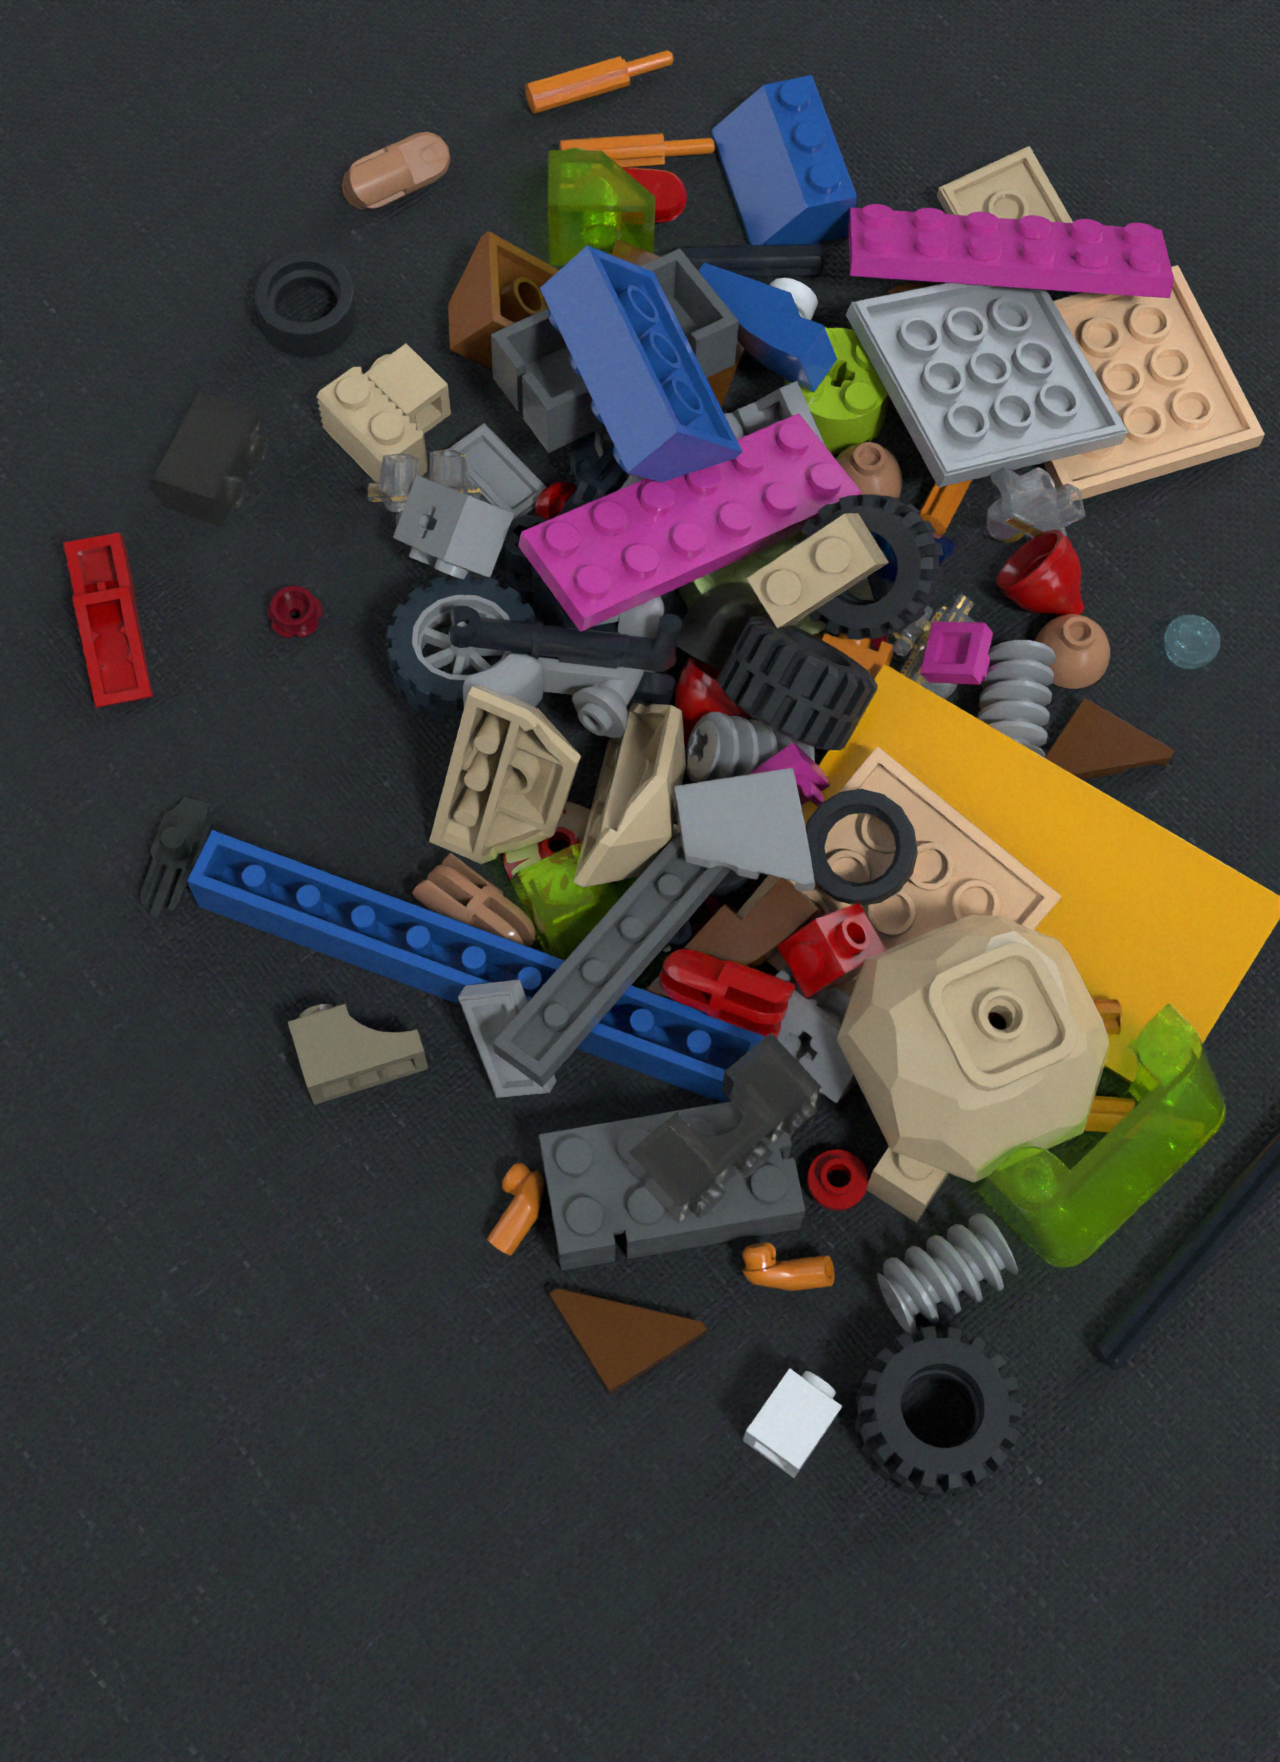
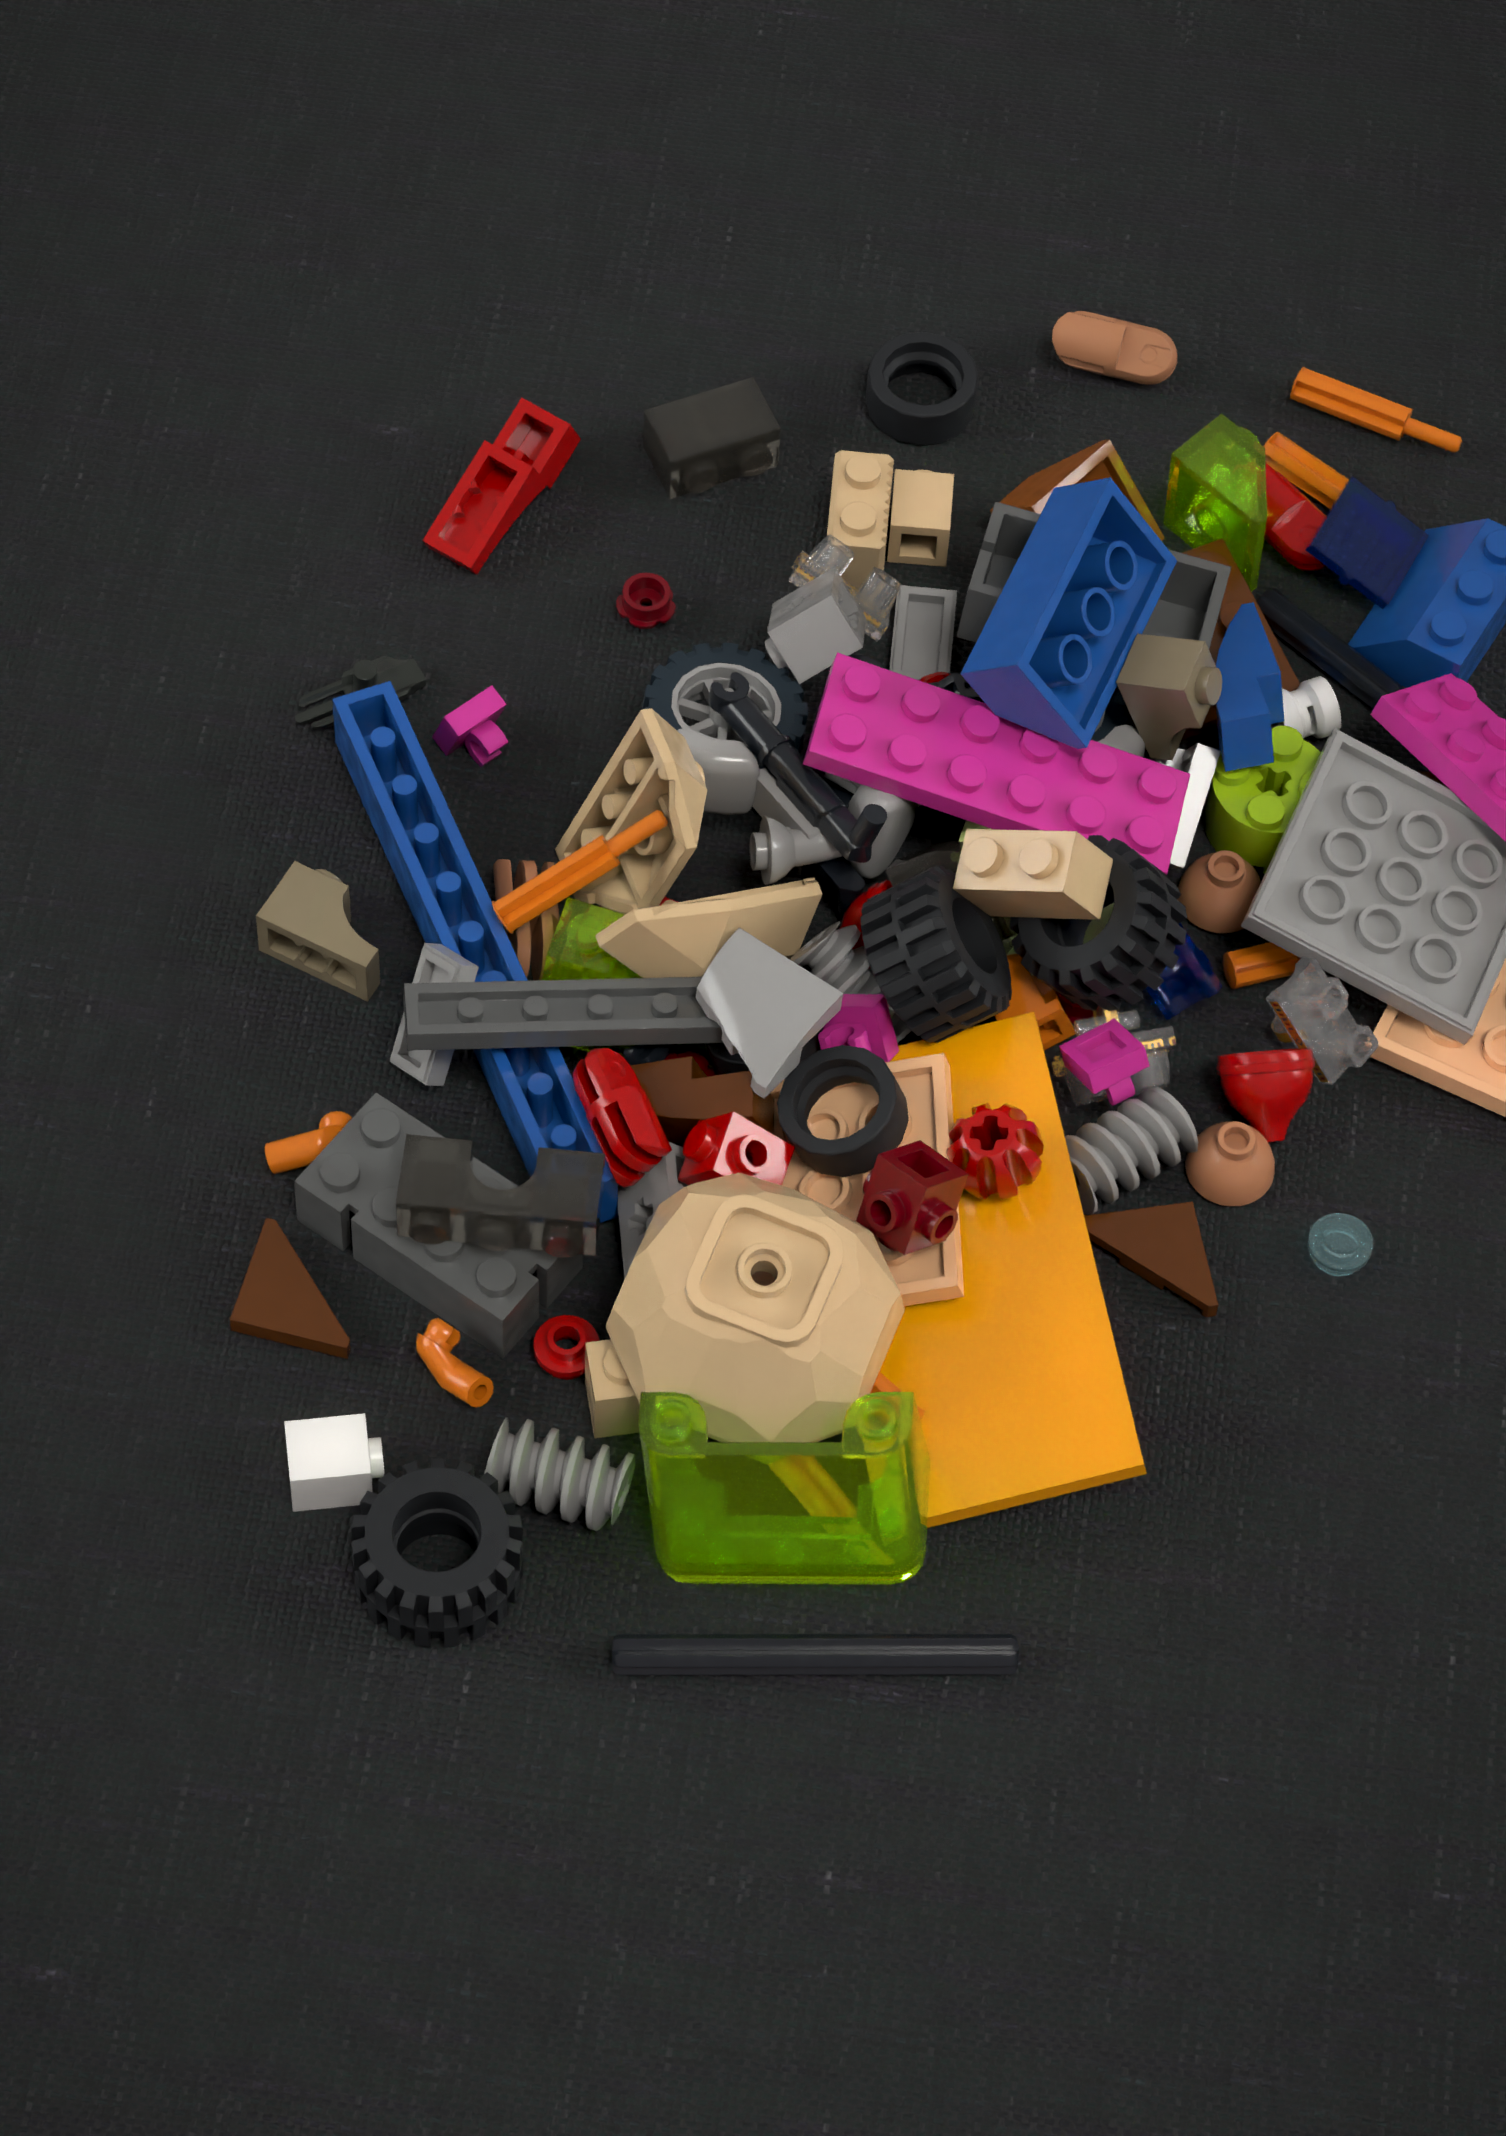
camera: 45 degrees right, 10 degrees down
(286, 808) = (475, 727): none -> dark pink tile
(507, 853) = (572, 873): none -> orange axle
(701, 166) = (1367, 542): none -> clear blue piece
(740, 363) = (1168, 689): none -> dark tan arch
(981, 765) = (996, 1150): none -> red piece
(988, 866) = (911, 1198): none -> dark red brick

